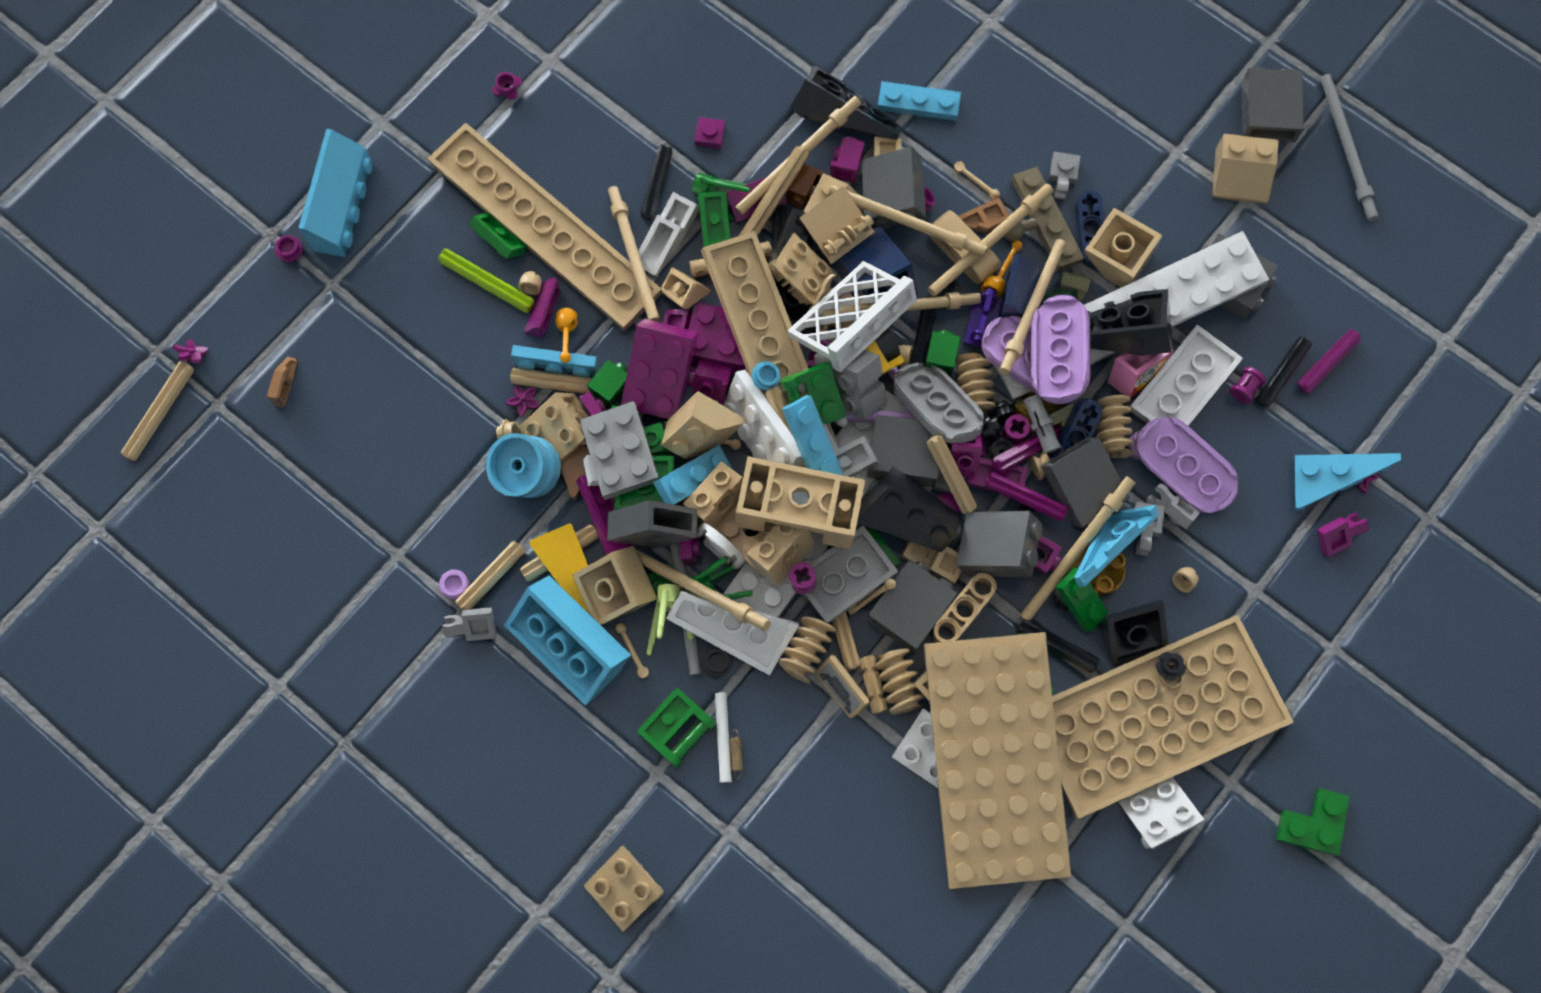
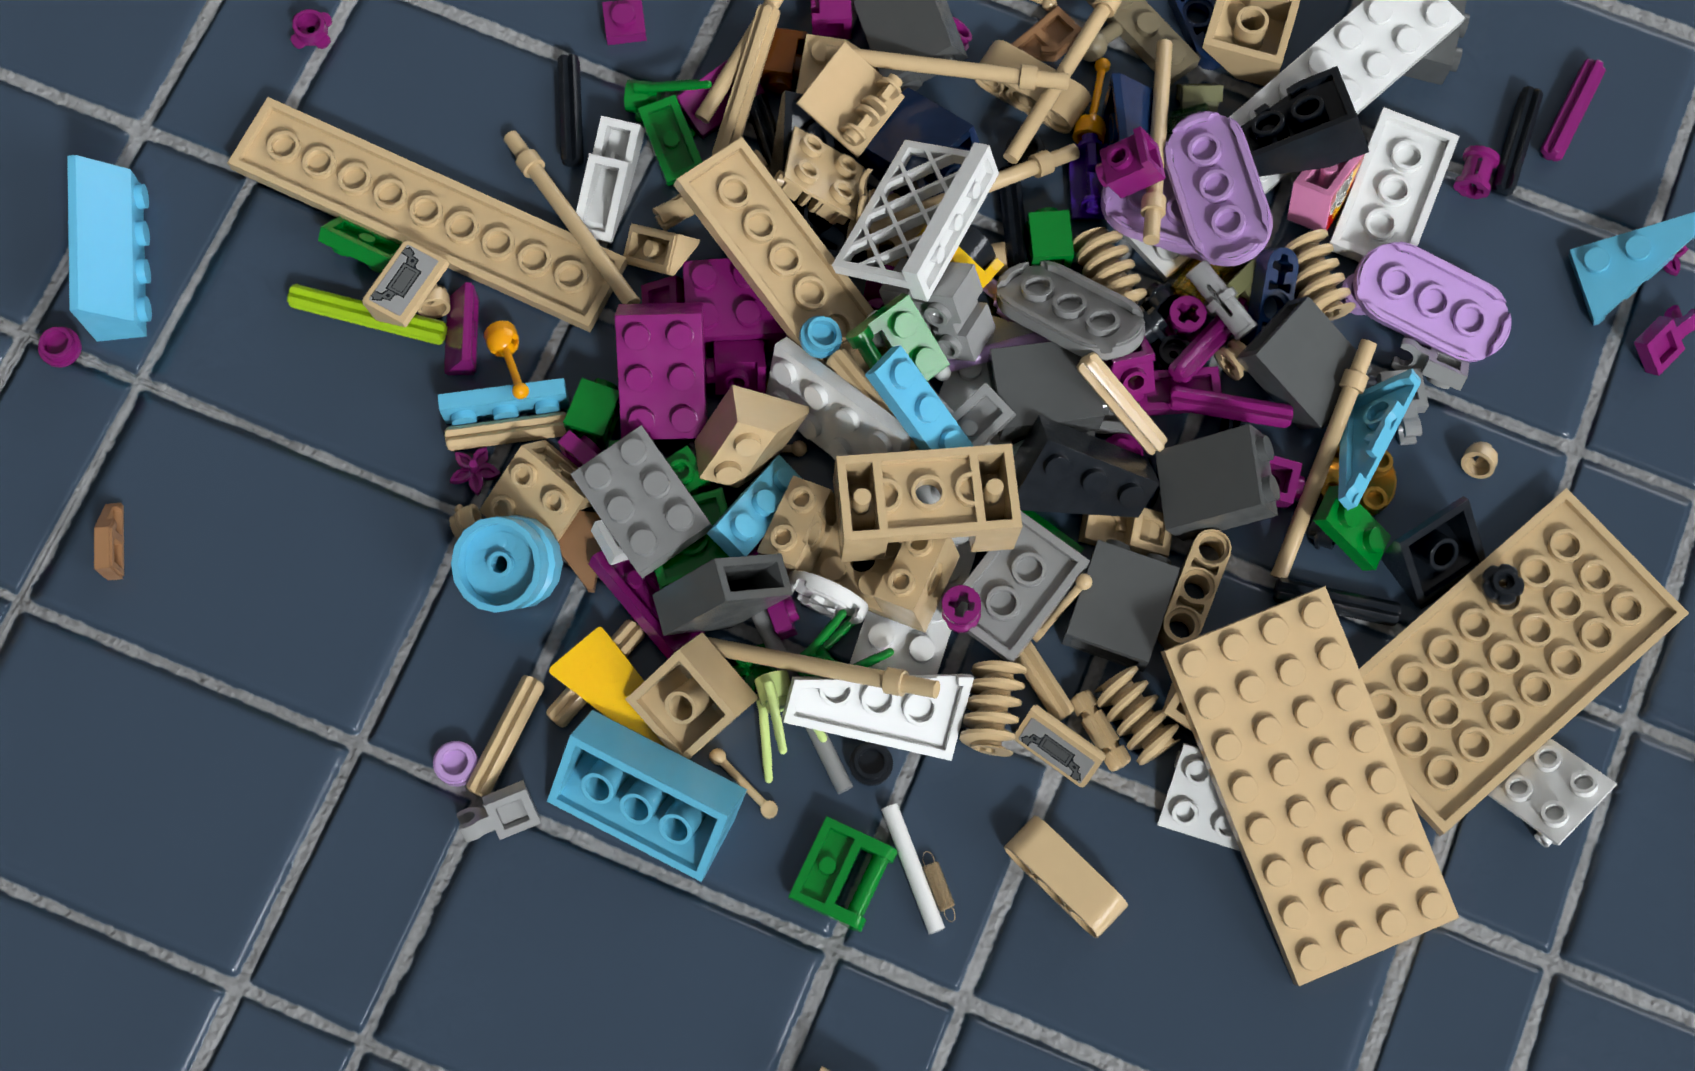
camera: 20 degrees left, 0 degrees up
(514, 268) = (404, 284): none -> slope
(819, 772) = (1066, 876): none -> tan beam
(1007, 317) = (1131, 164): none -> magenta brick

